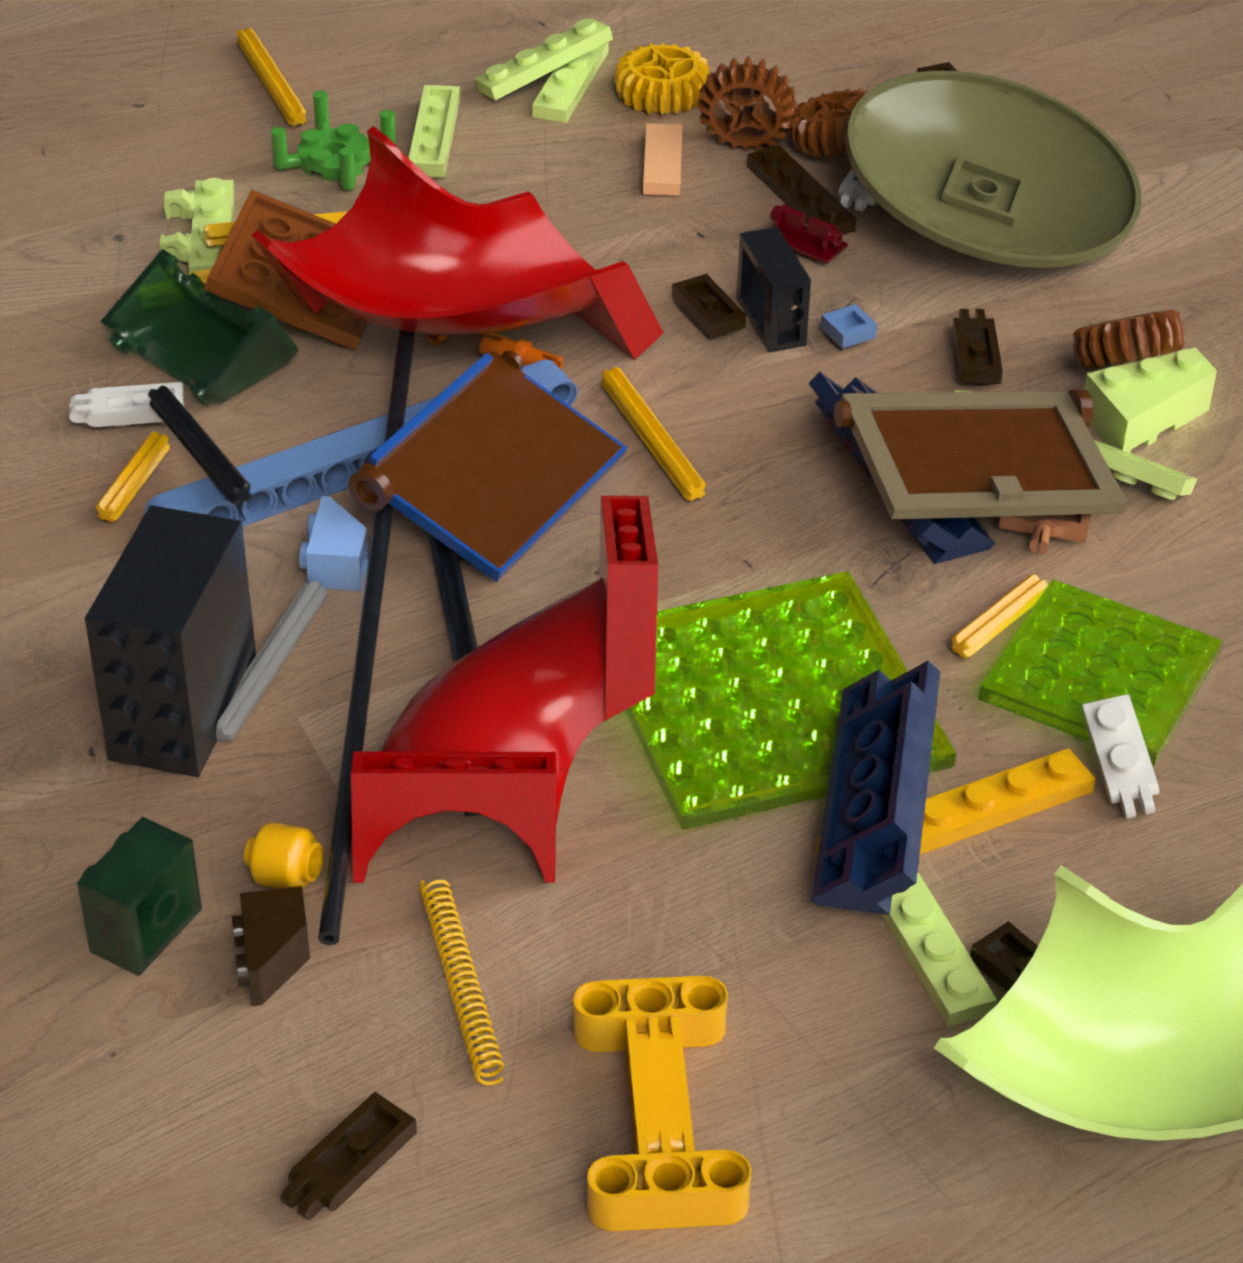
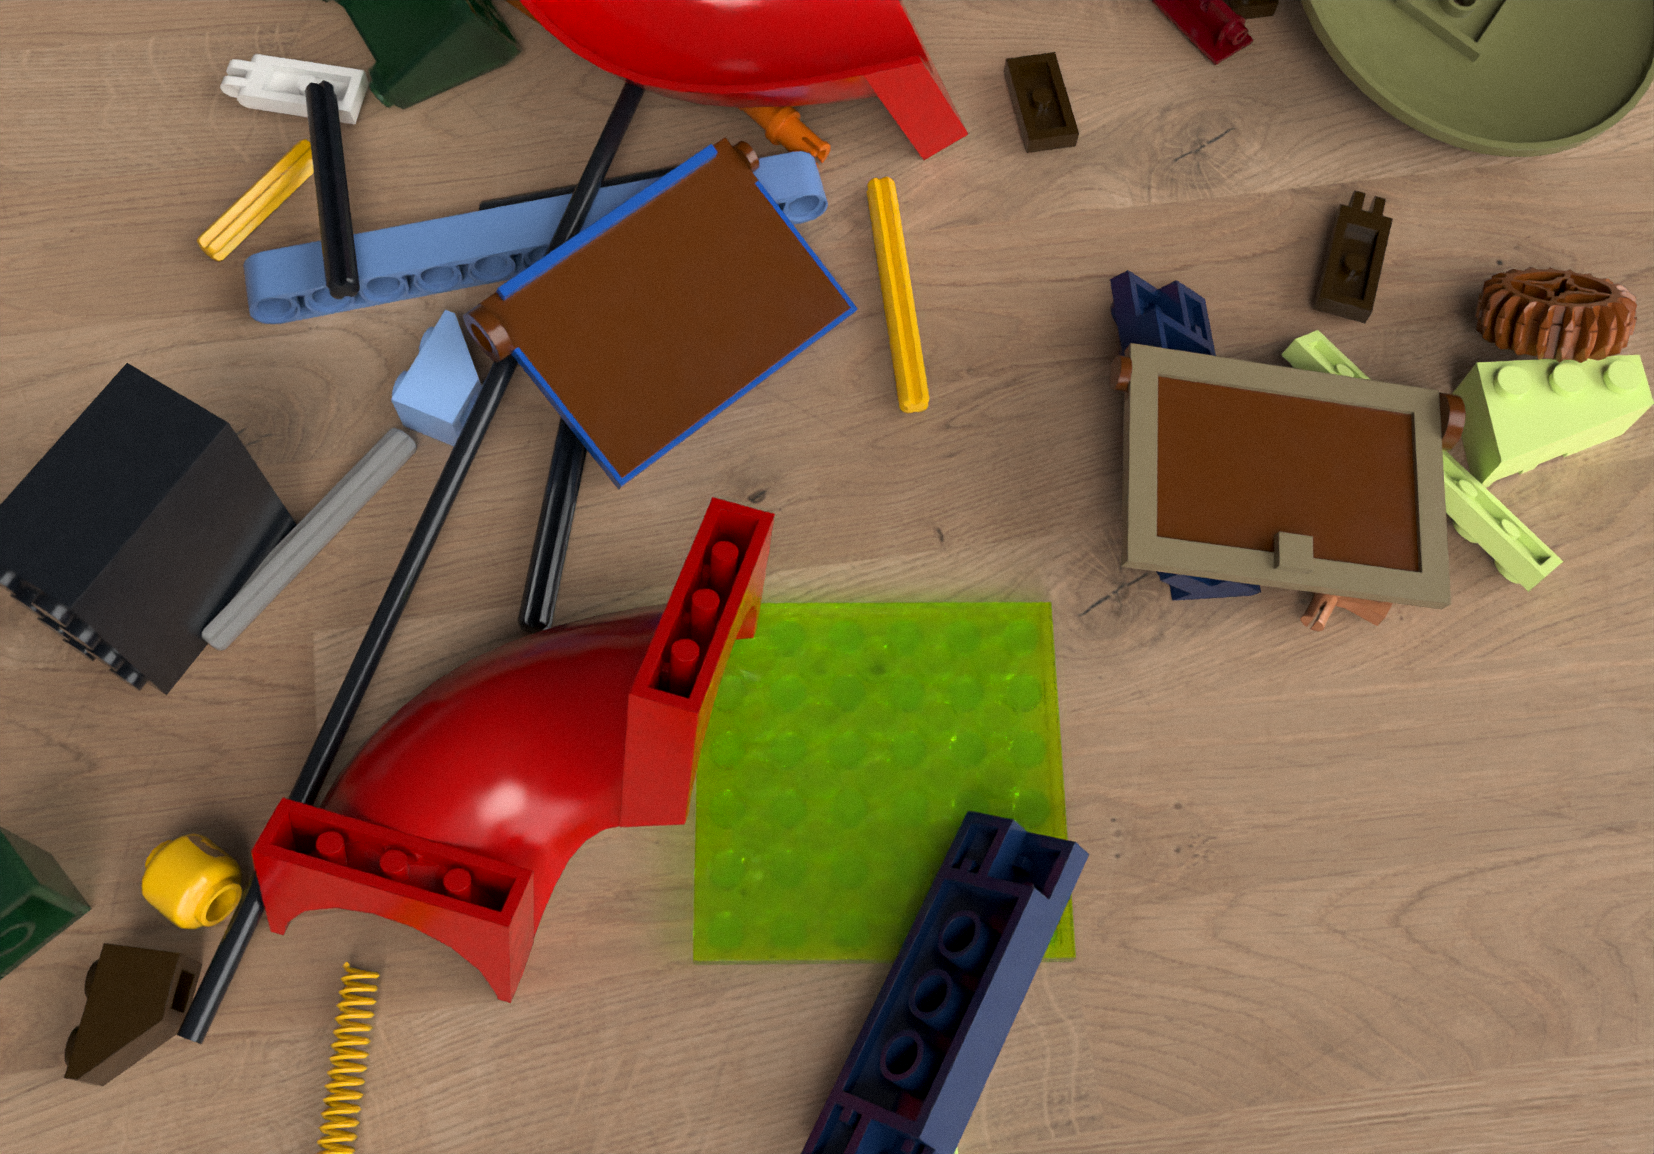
camera: 15 degrees right, 25 degrees up
(770, 285) = (1124, 106): black window -> none
(848, 326) = (1203, 181): medium blue plate -> none
(998, 616) = (1220, 722): yellow axle -> none
(1003, 798) = (1116, 1035): yellow plate -> none
(1096, 649) = (1322, 855): clear neon green plate -> none
(1121, 753) = (1290, 1023): white hinge -> none

